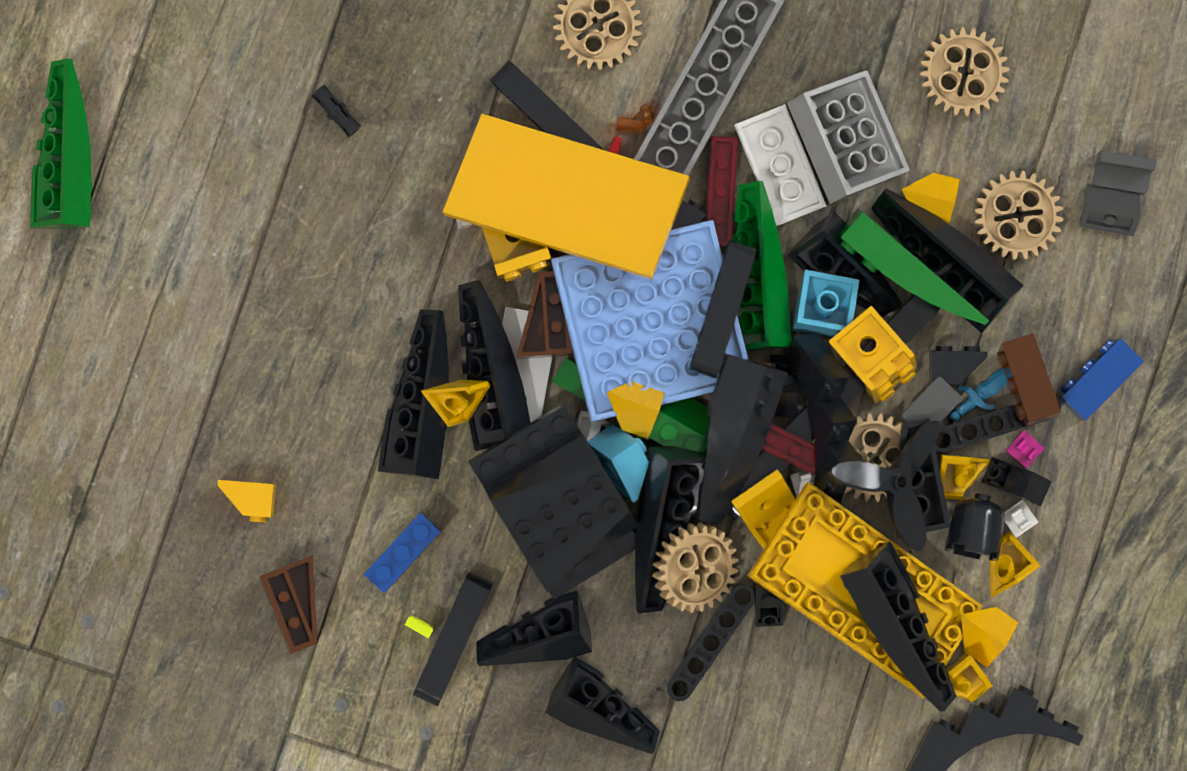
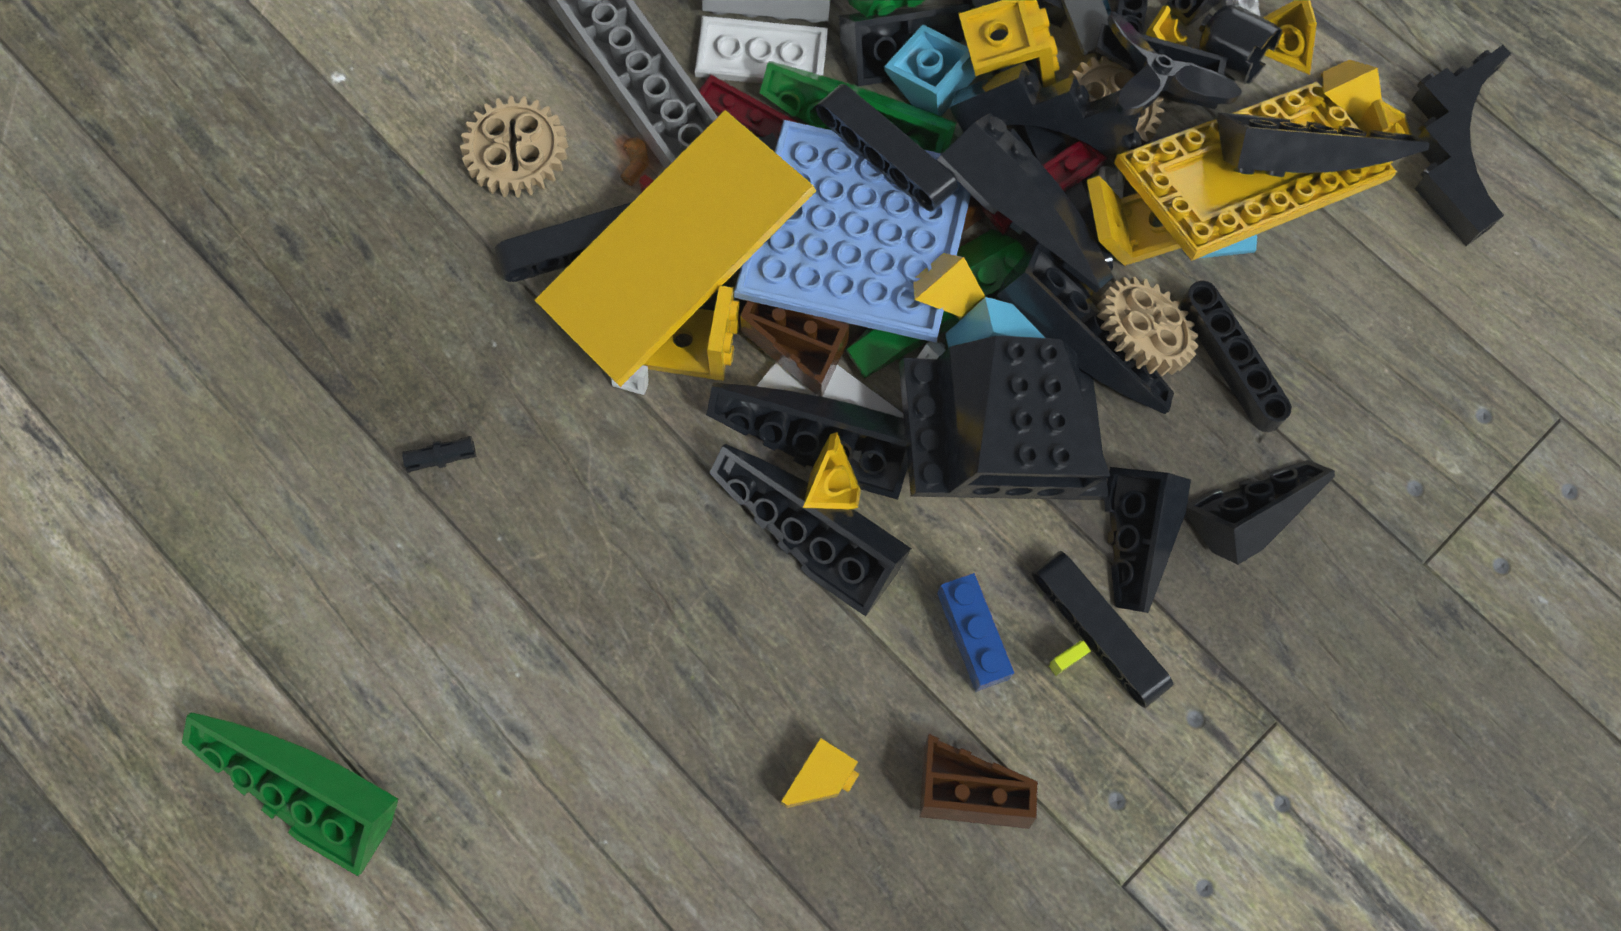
camera: 65 degrees left, 15 degrees down
(767, 607) = (1216, 269): black slope -> none

